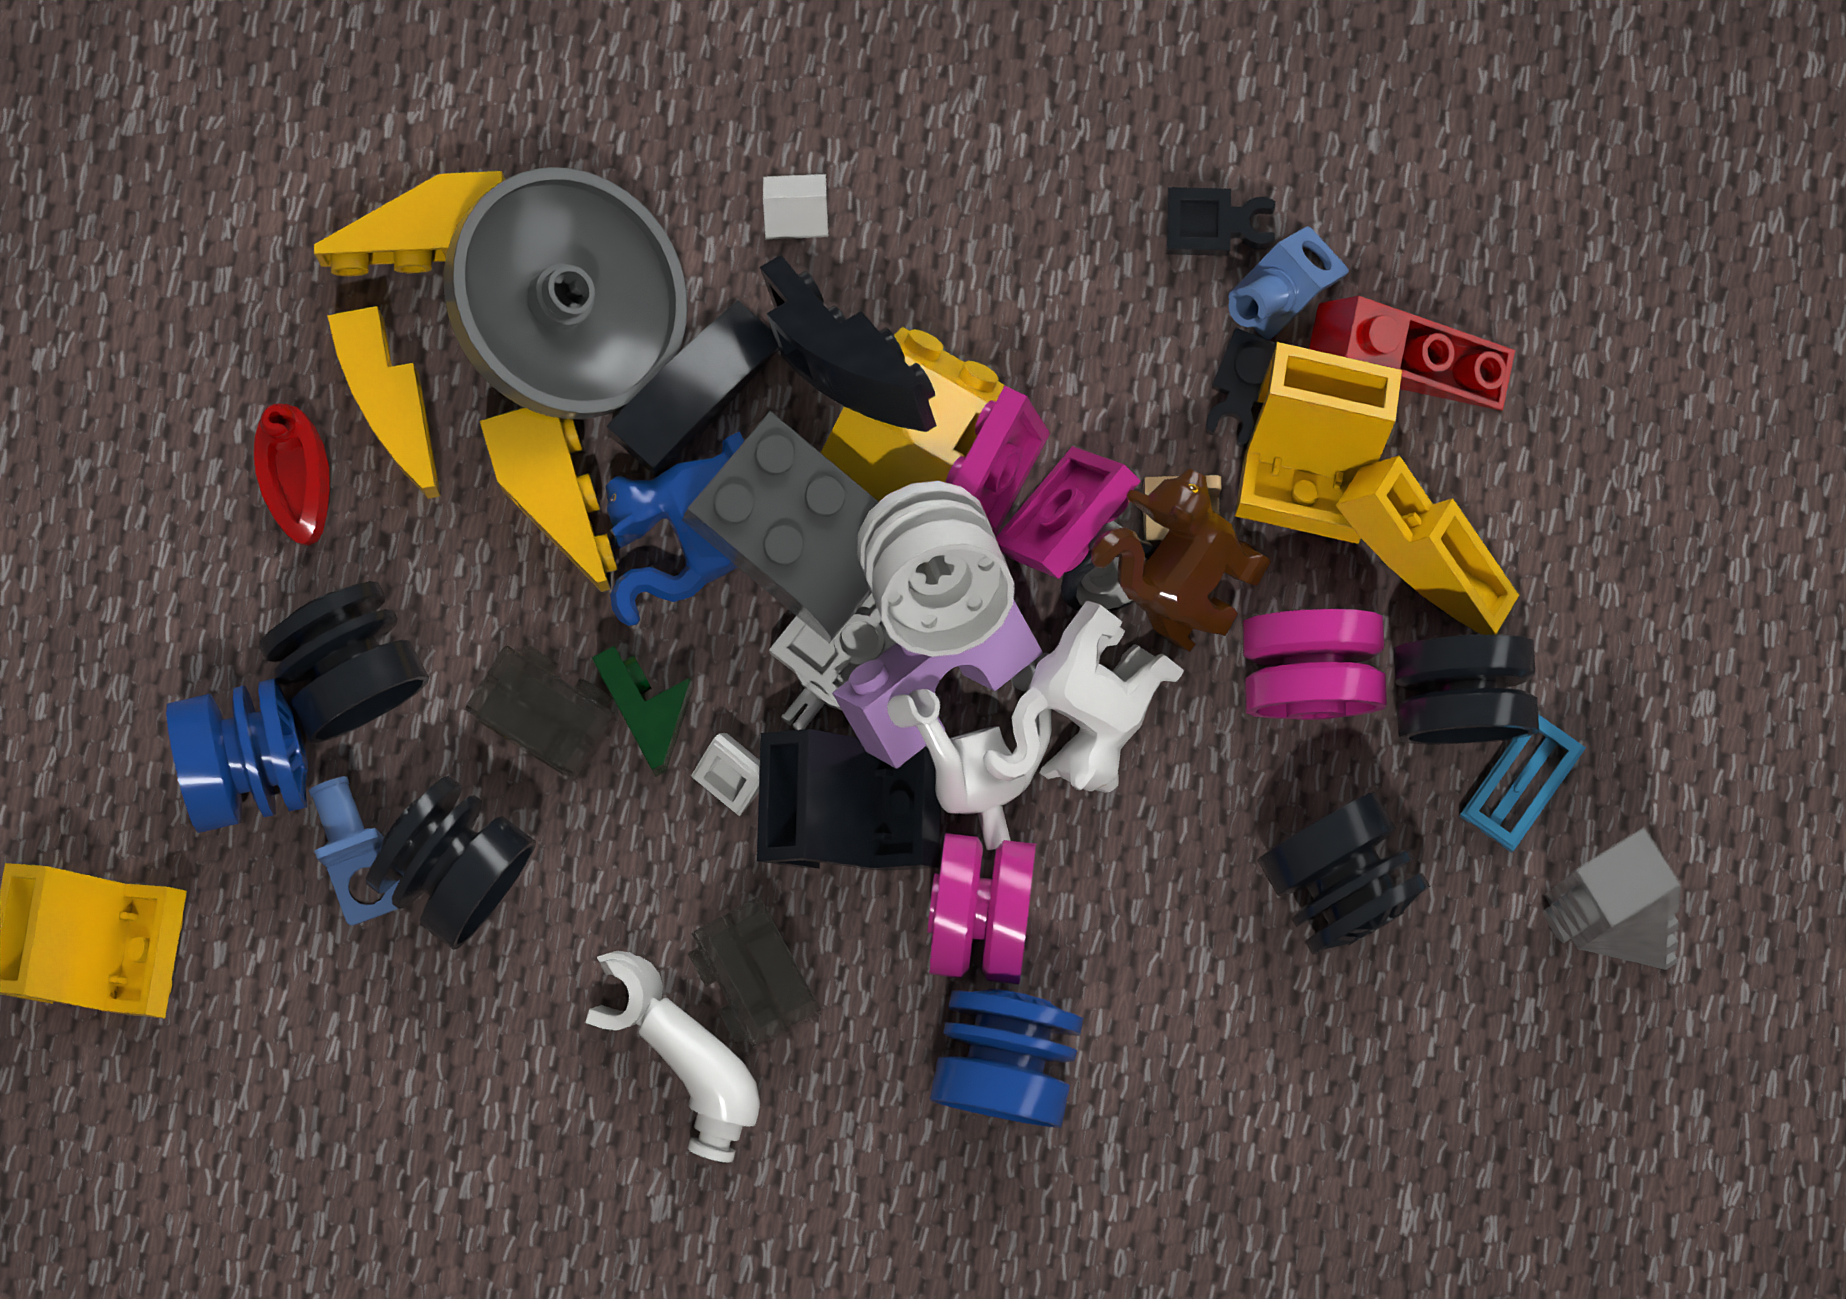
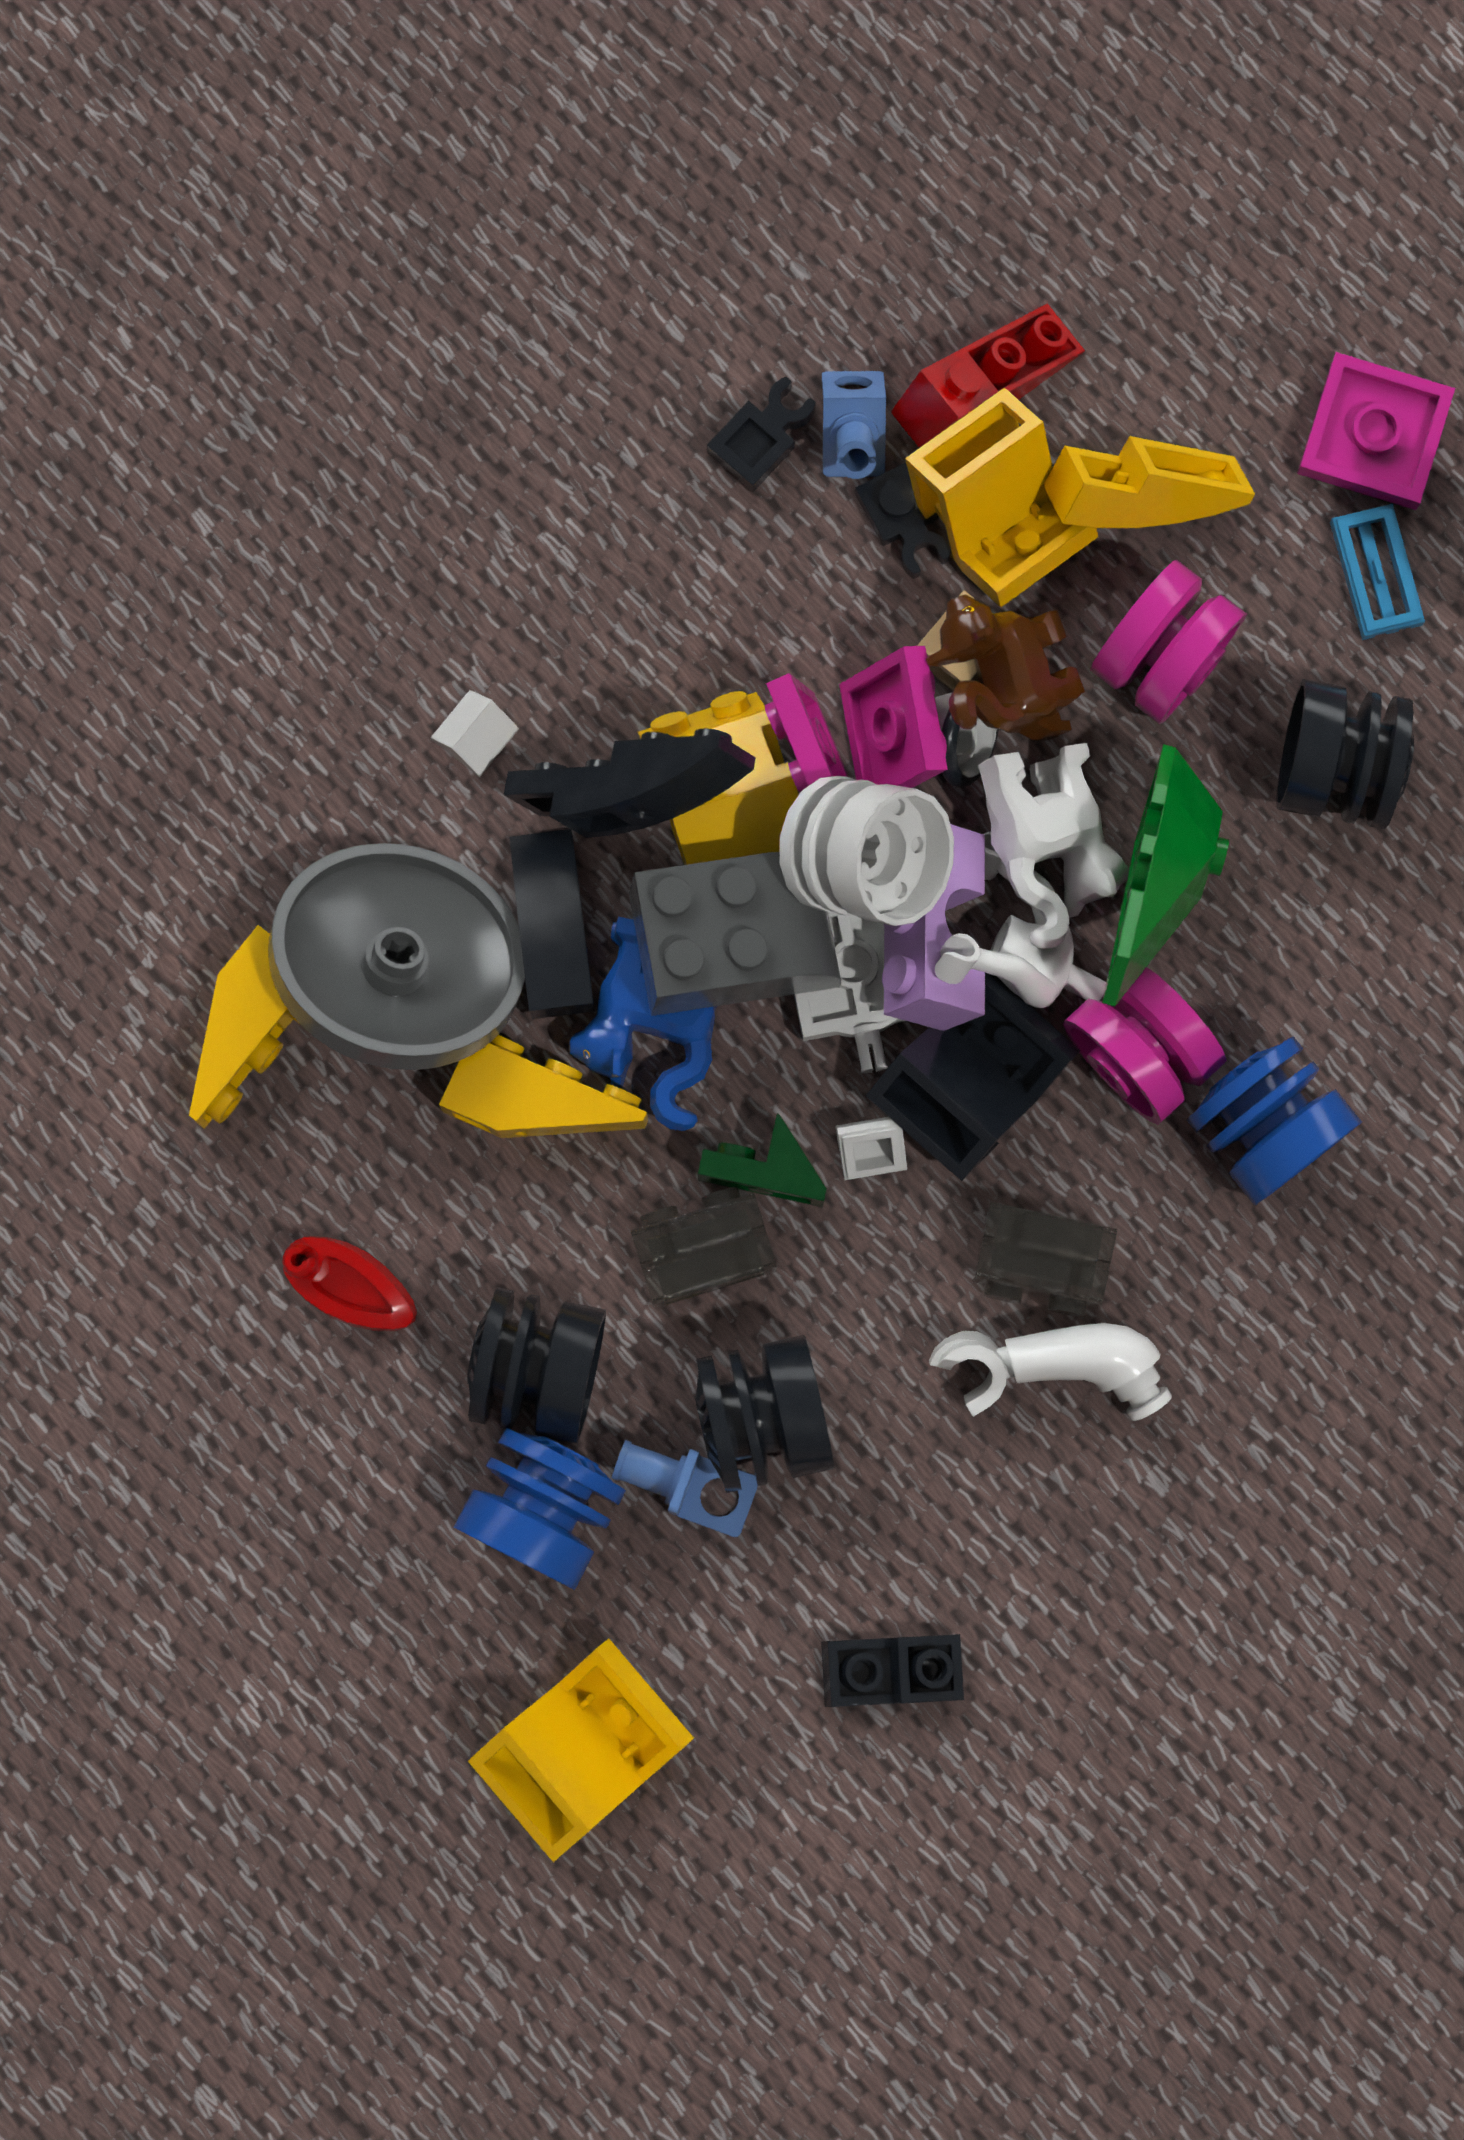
camera: 50 degrees left, 0 degrees up
(344, 1126) = (892, 1670): none -> black slope
(386, 394) = (353, 1162): yellow slope -> none
(1125, 813) = (1167, 868): none -> green wedge
(1466, 689) = (1275, 542): black wheel -> none
(1633, 686) = (1376, 431): none -> dark pink plate

